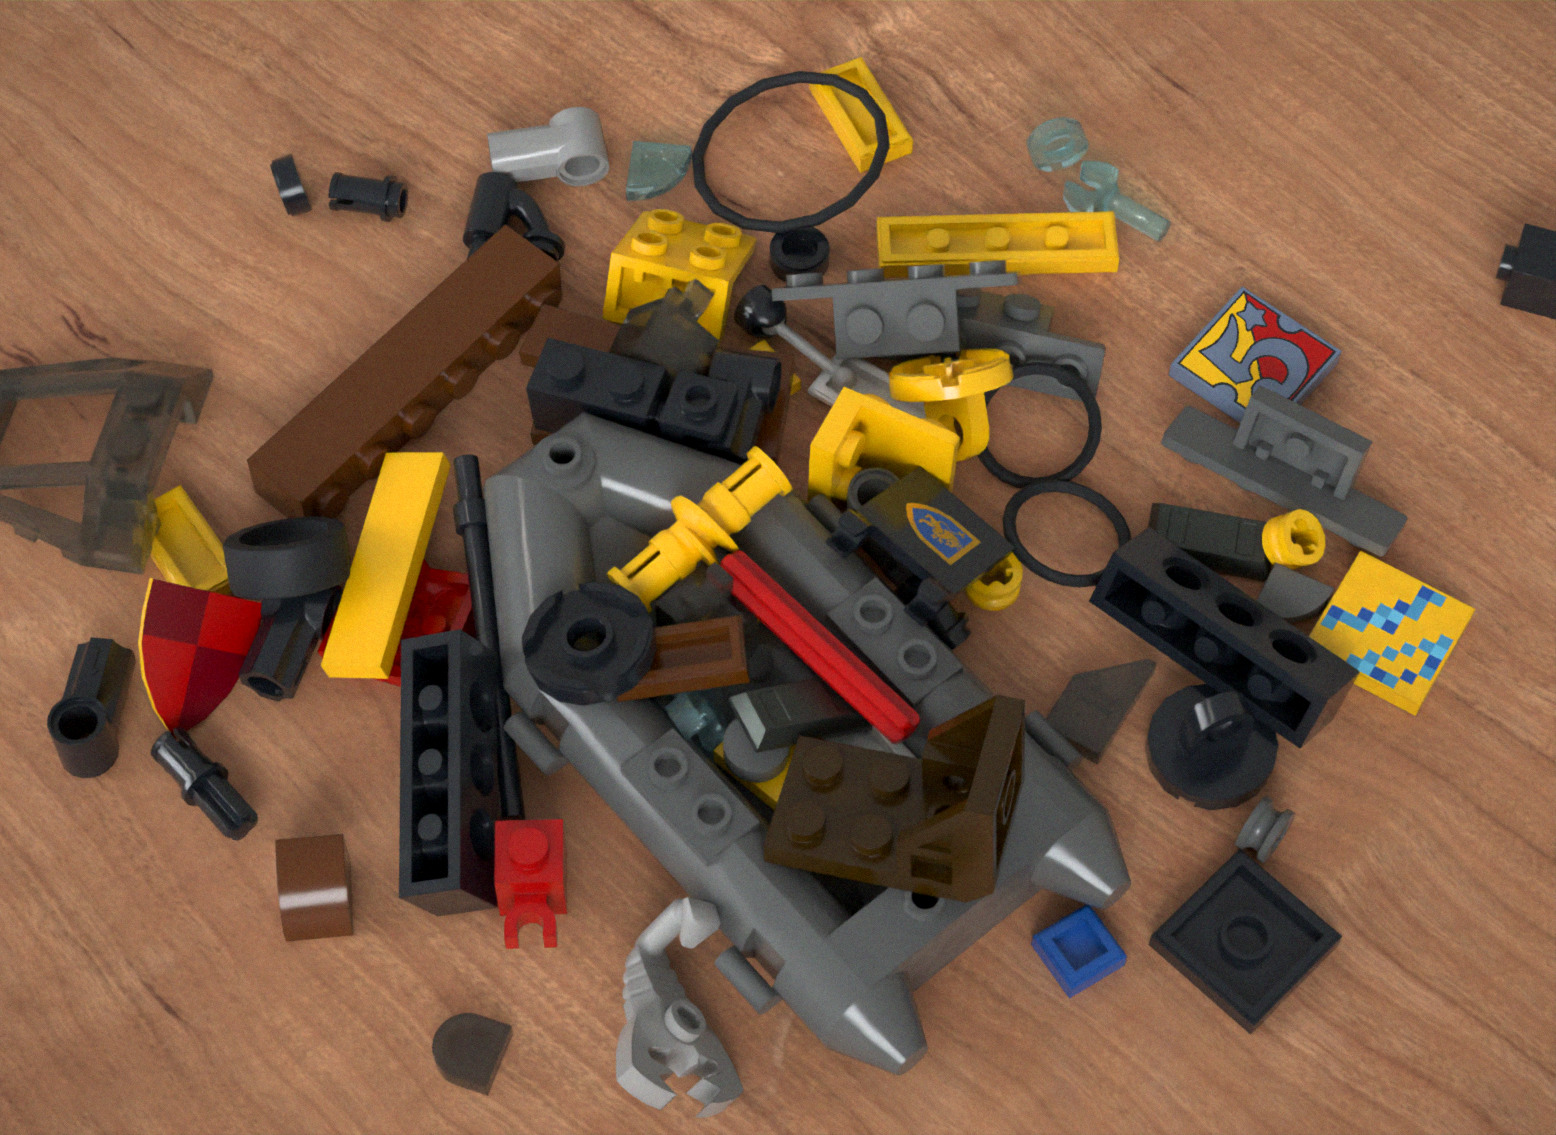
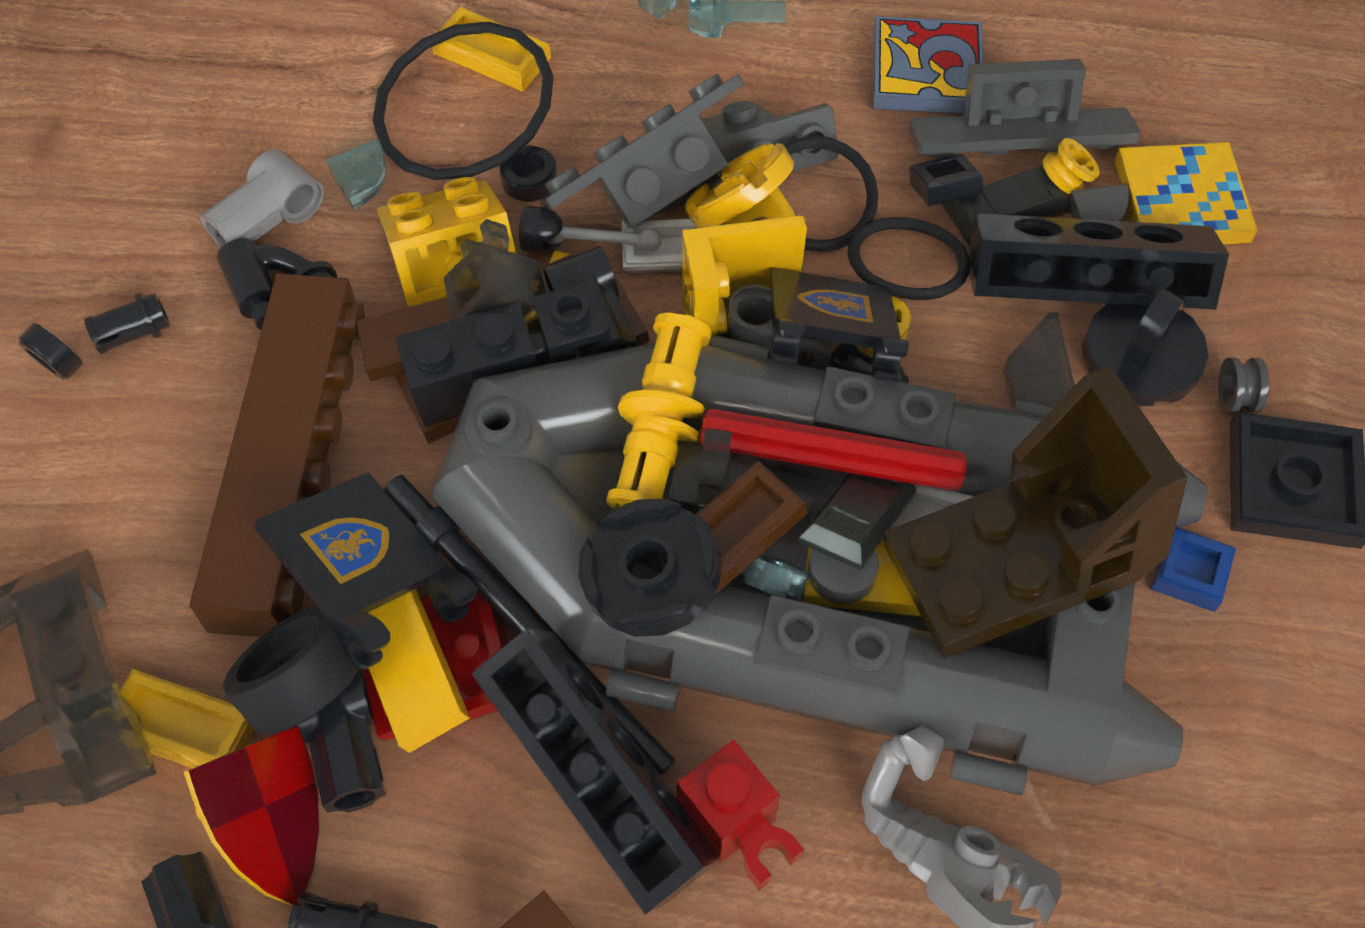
camera: 35 degrees left, 0 degrees up
(394, 496) = (357, 553): none -> black flag
(1025, 240) = (621, 109): yellow tile -> none
(1164, 482) = (946, 179): none -> black tile

